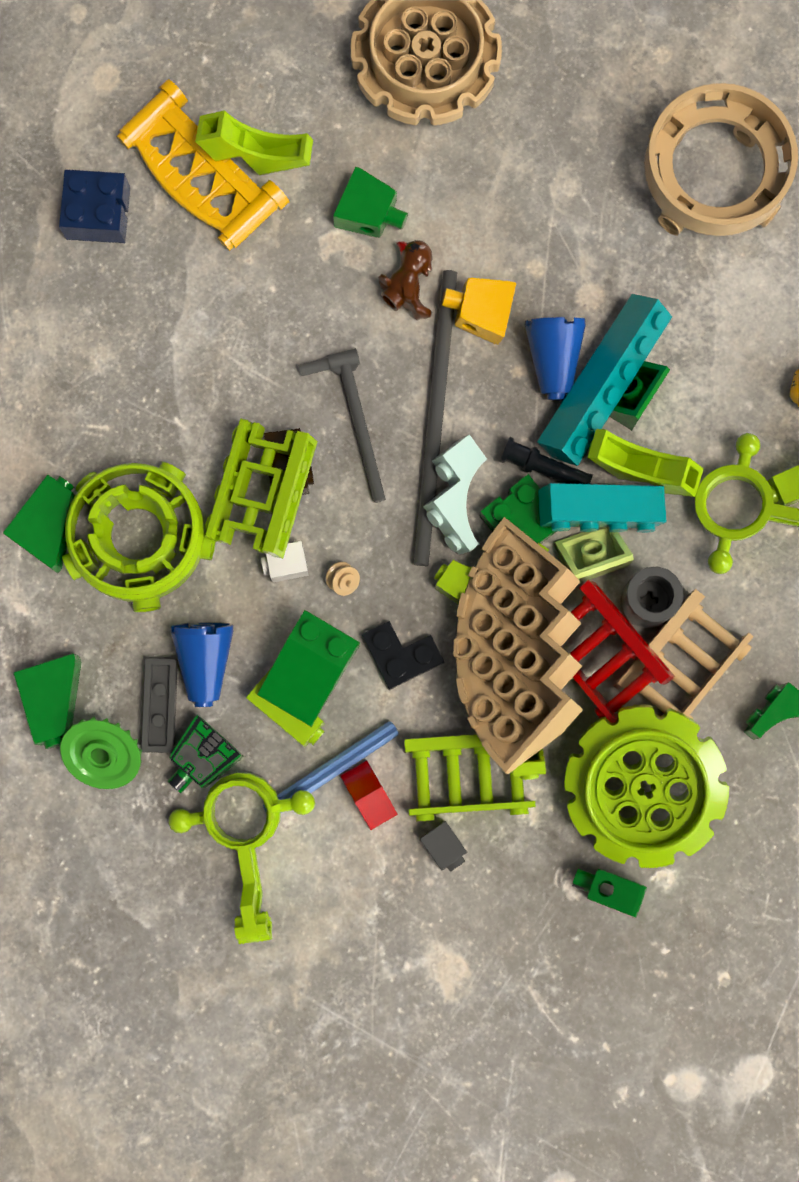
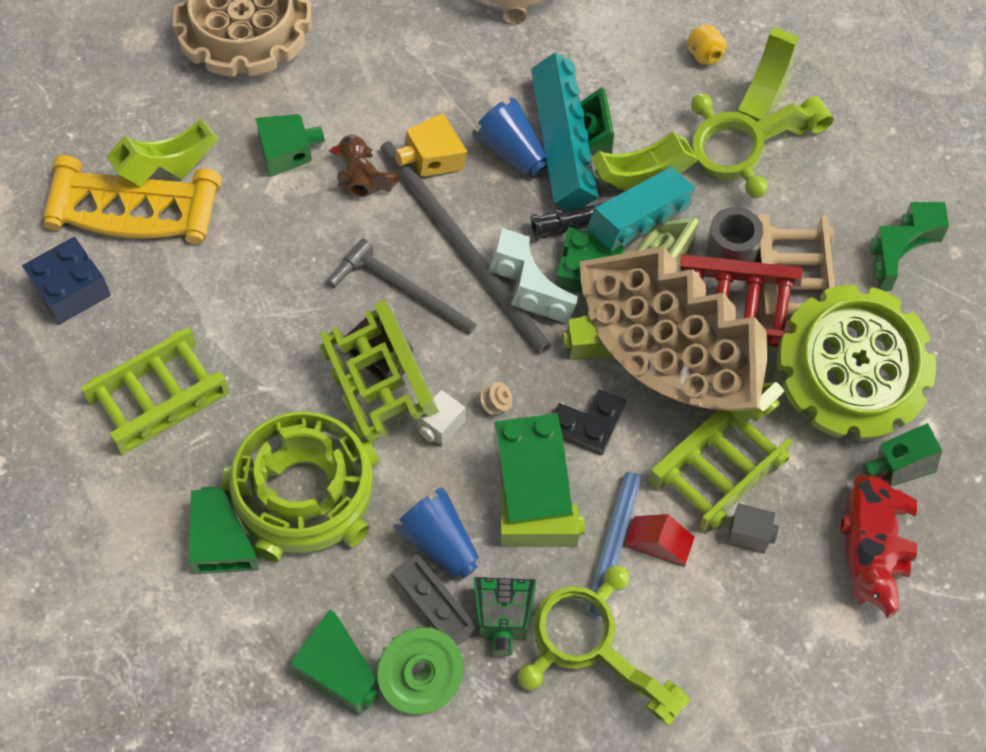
camera: 40 degrees left, 20 degrees down
(103, 388) = (167, 414): none -> lime fence
(525, 931) = (873, 543): none -> red animal

